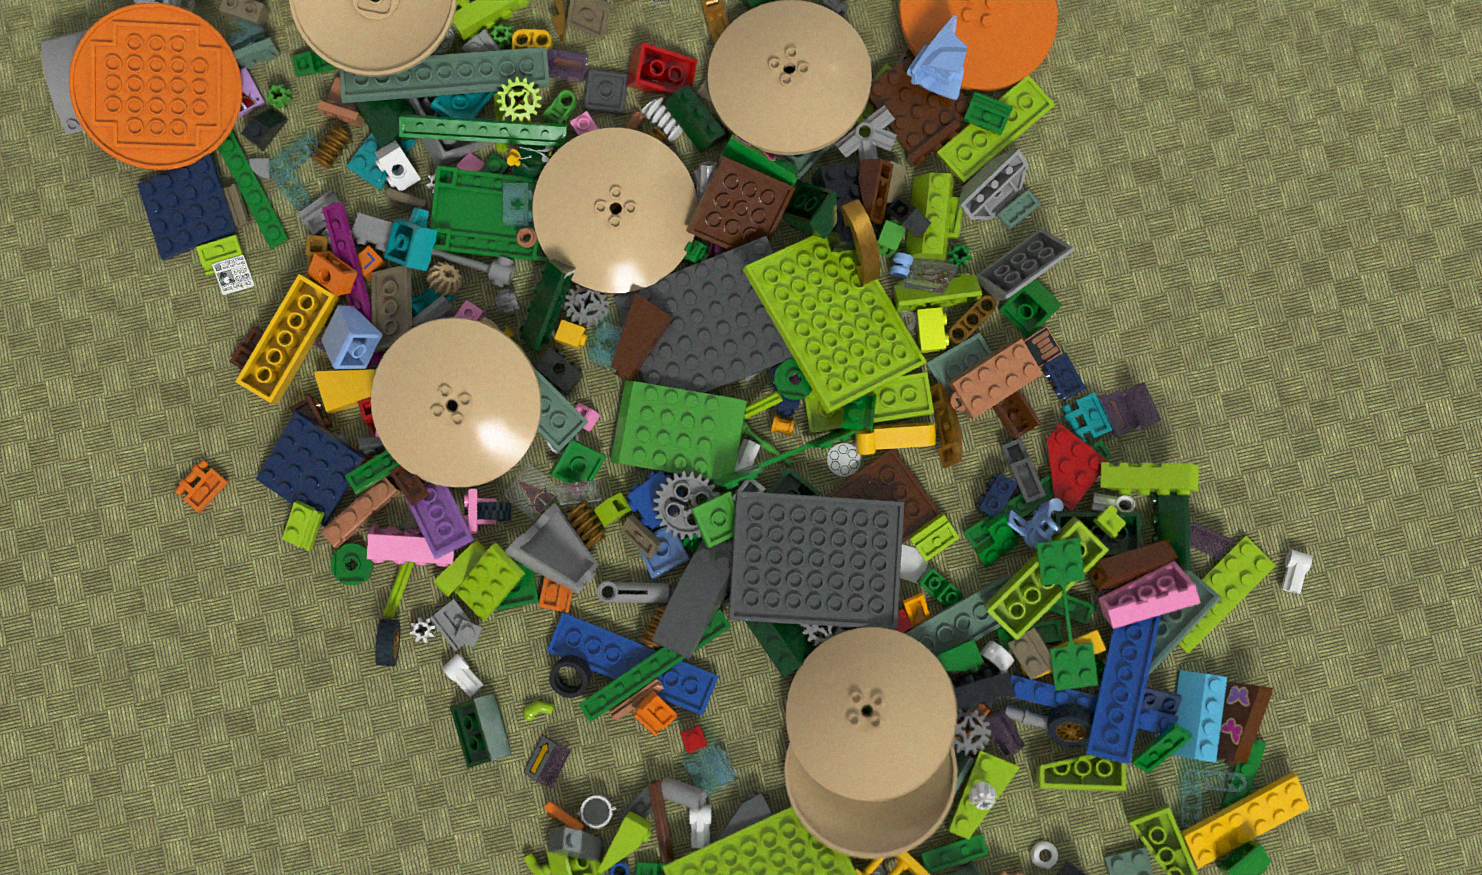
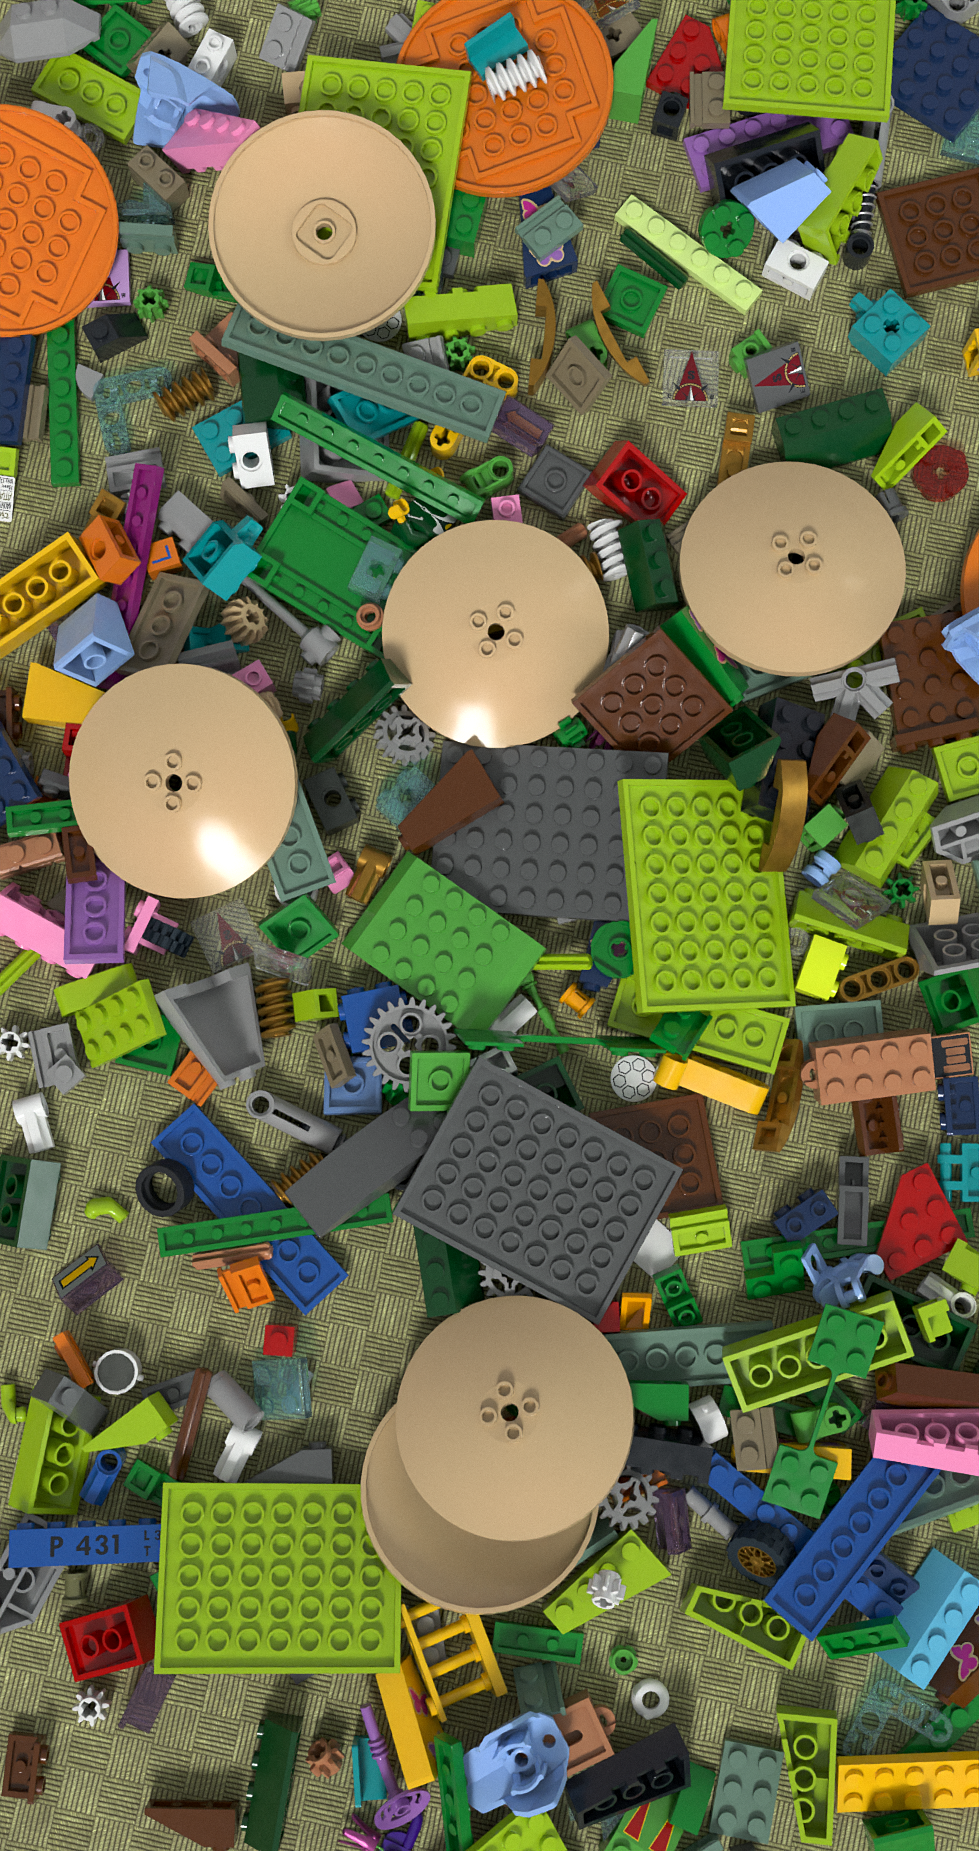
camera: 25 degrees right, 0 degrees up
(526, 105) = (446, 452): lime gear -> none
(571, 335) = (368, 763): yellow brick -> none
(606, 402) = (370, 868): none -> pearl gold piece
(985, 244) = (940, 892): none -> tan brick
(1021, 838) = (629, 1665): none -> bright green plate
(1059, 627) = (805, 1419): none -> bright green piece

